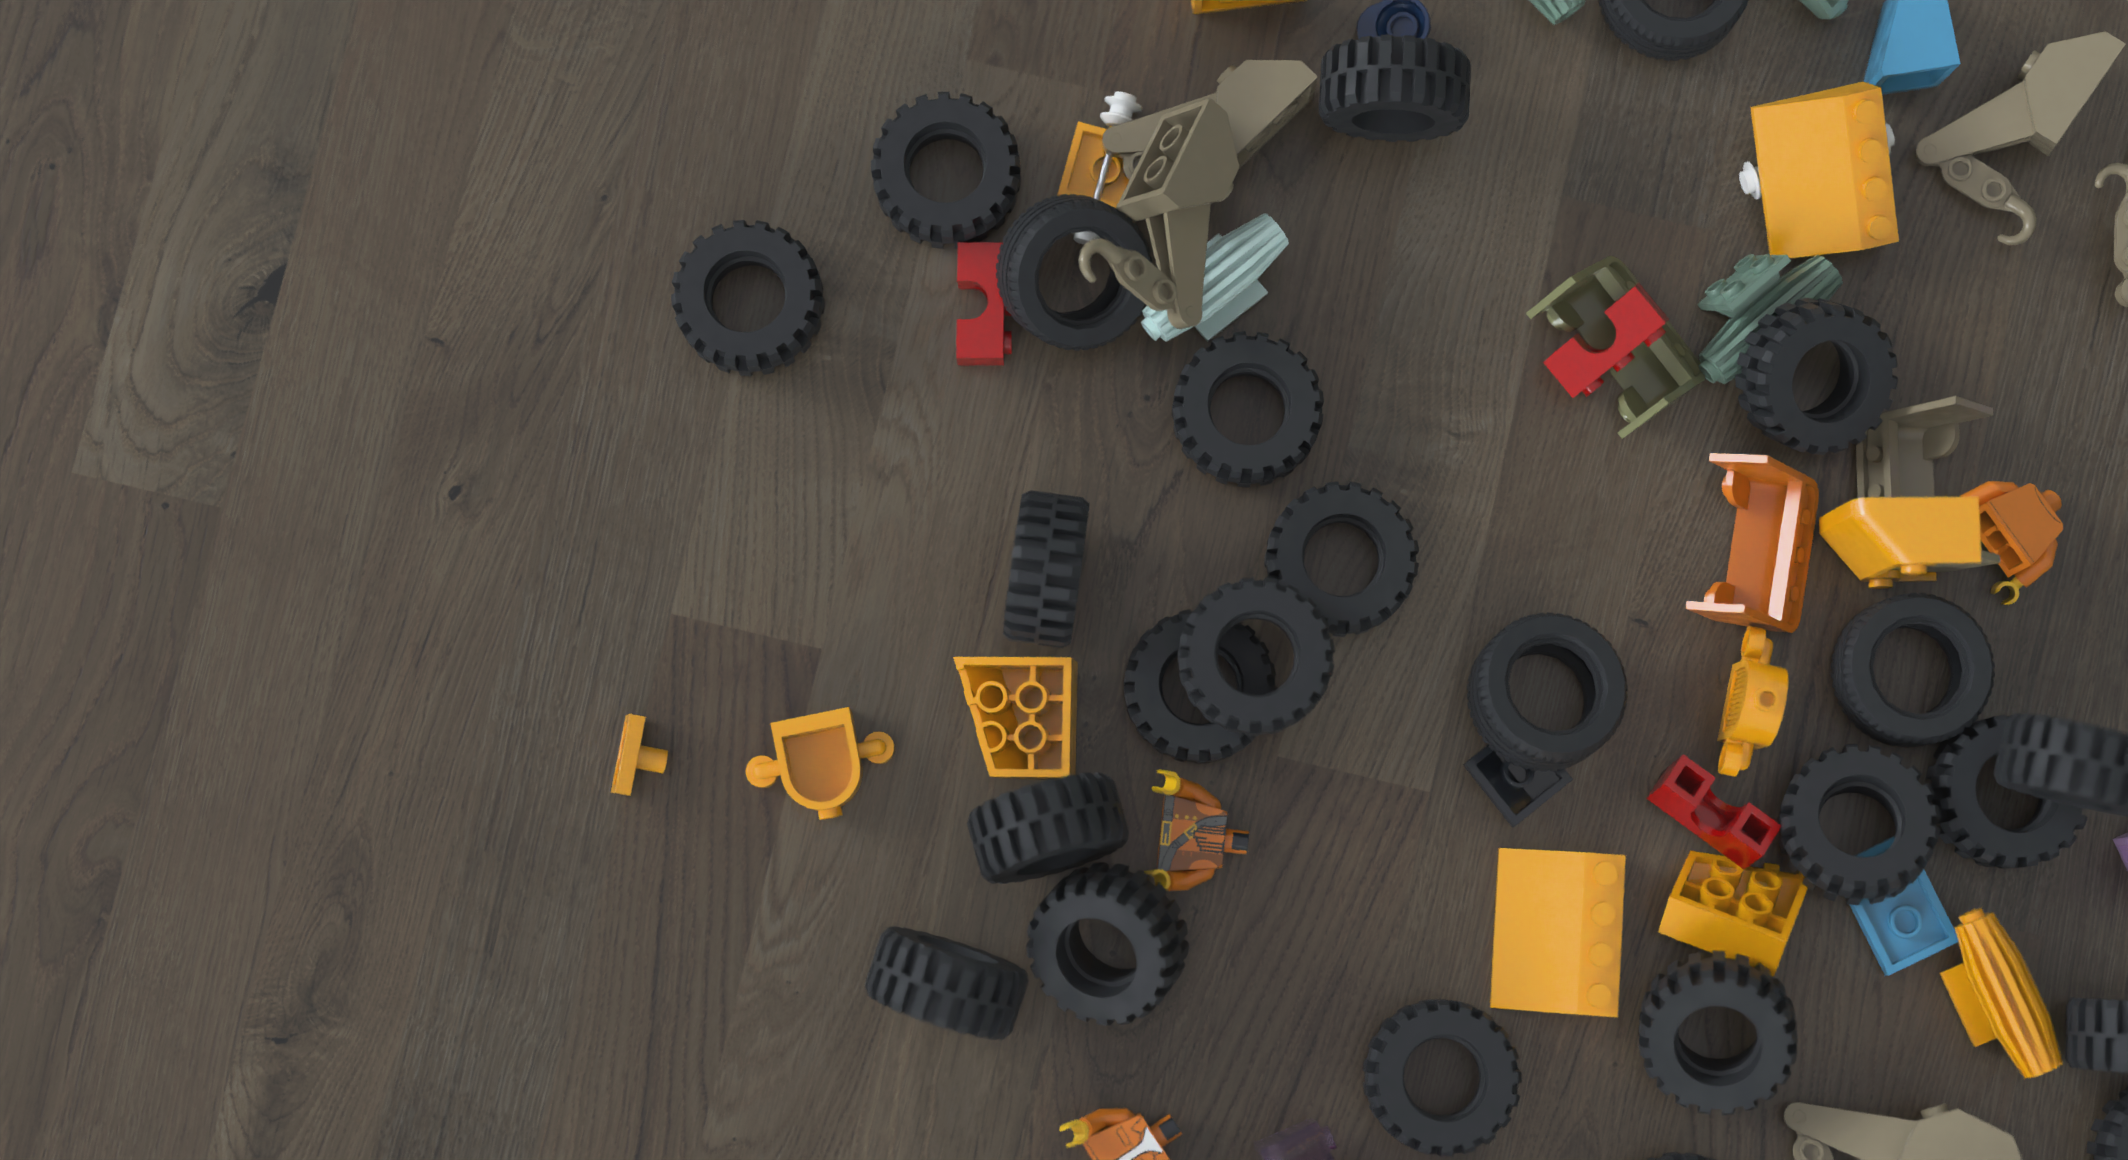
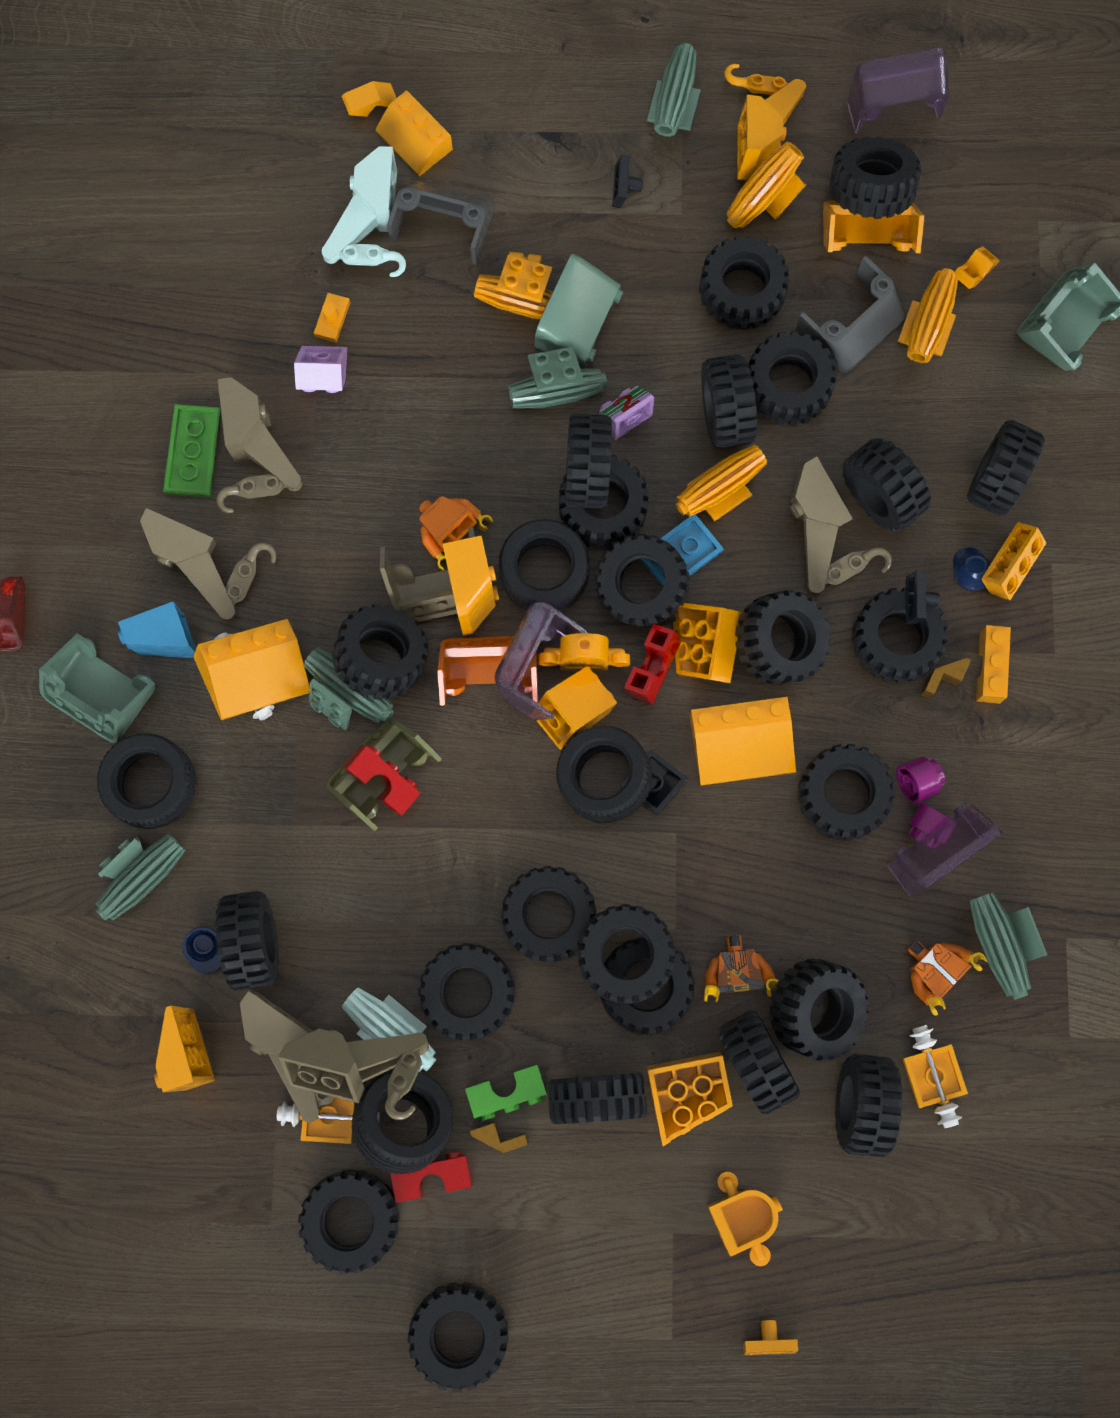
camera: 100 degrees left, 5 degrees down
(966, 1107) = (935, 1076): none -> light orange plate
(1023, 404) = (489, 1135): none -> pearl gold slope
(1077, 406) = (528, 1088): none -> bright green arch
(1668, 670) = (577, 705): none -> light orange slope
(1816, 634) = (537, 626): none -> clear purple windscreen

